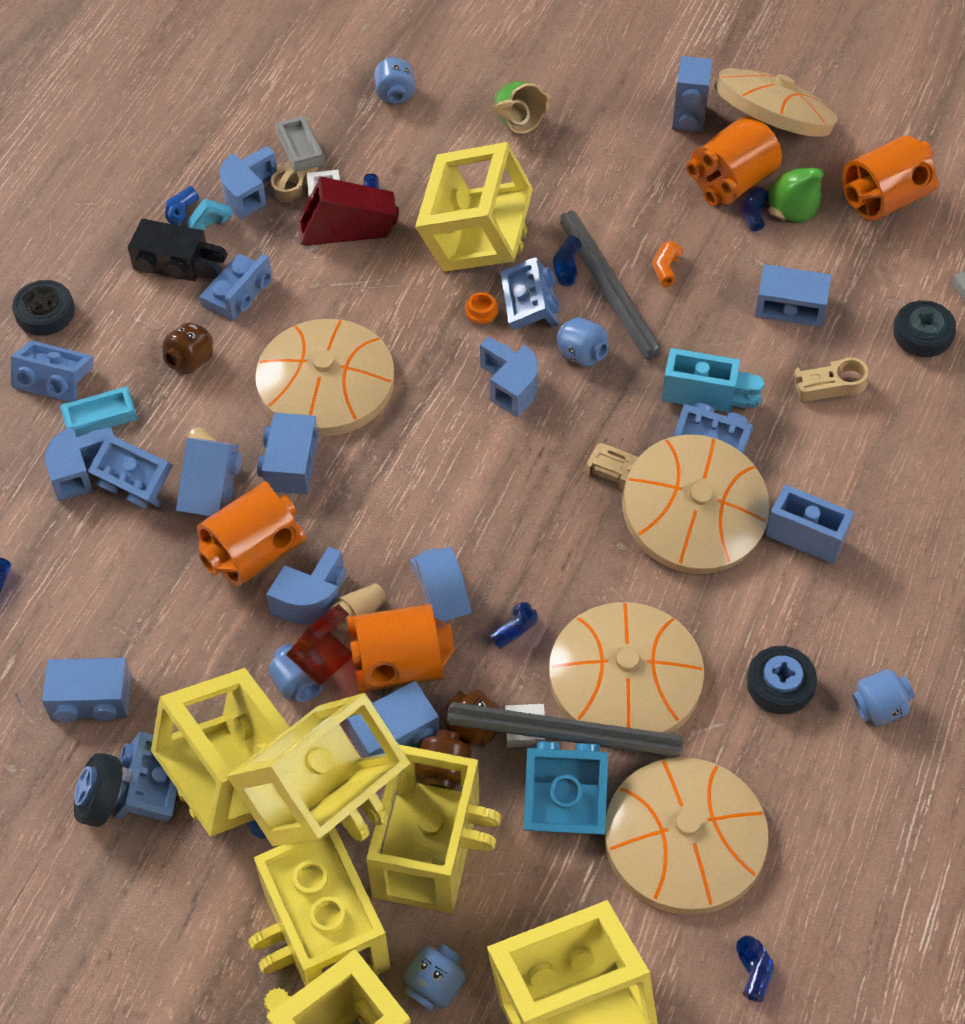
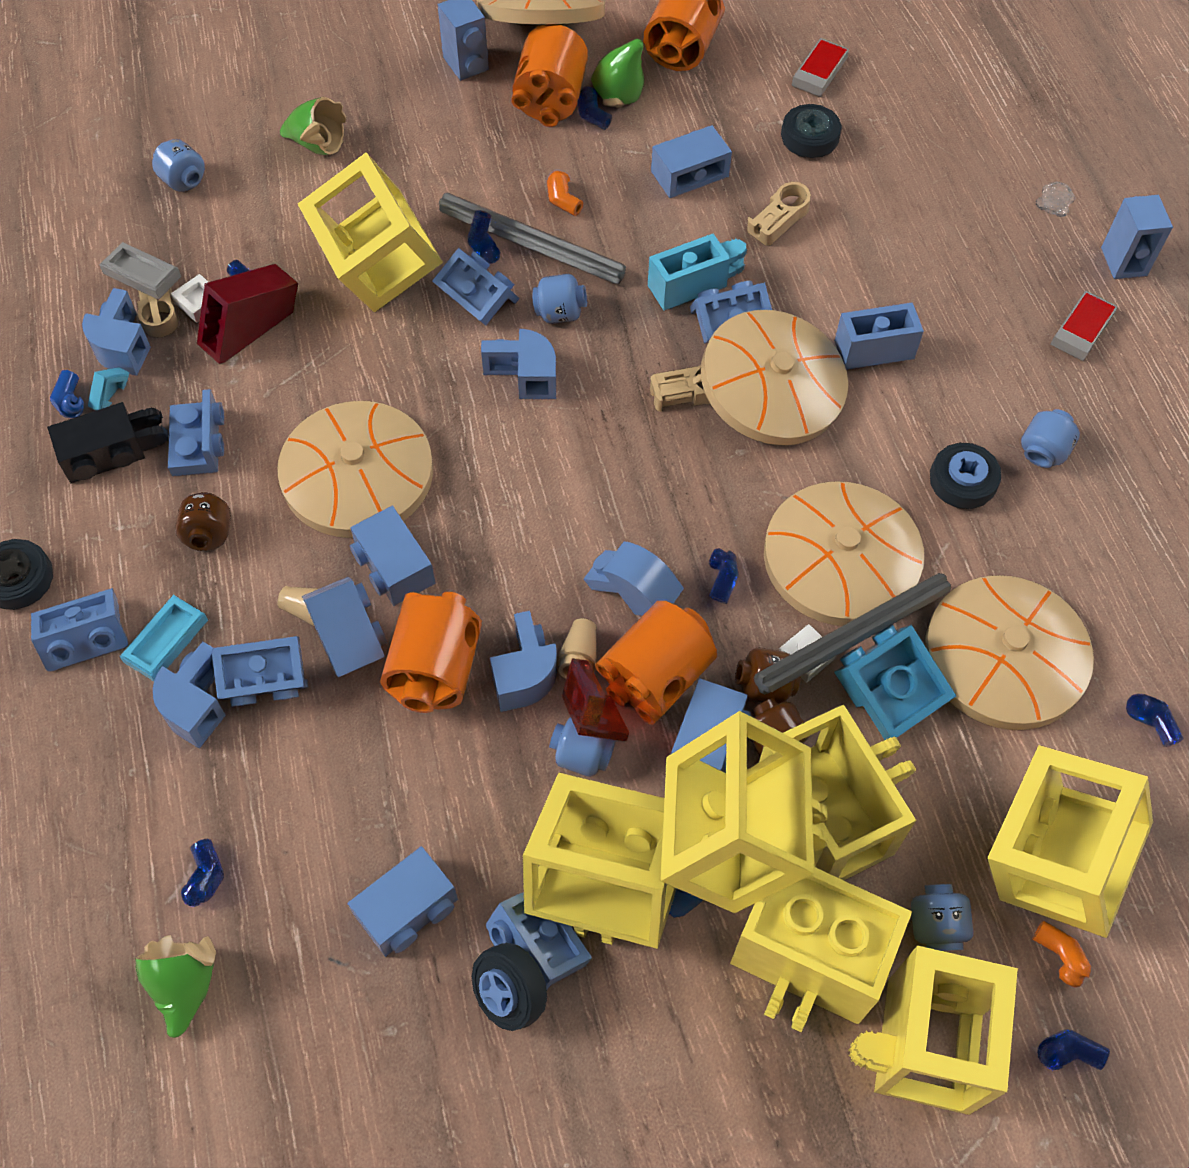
camera: 40 degrees left, 5 degrees up
(481, 308) = (442, 323): orange plate -> none

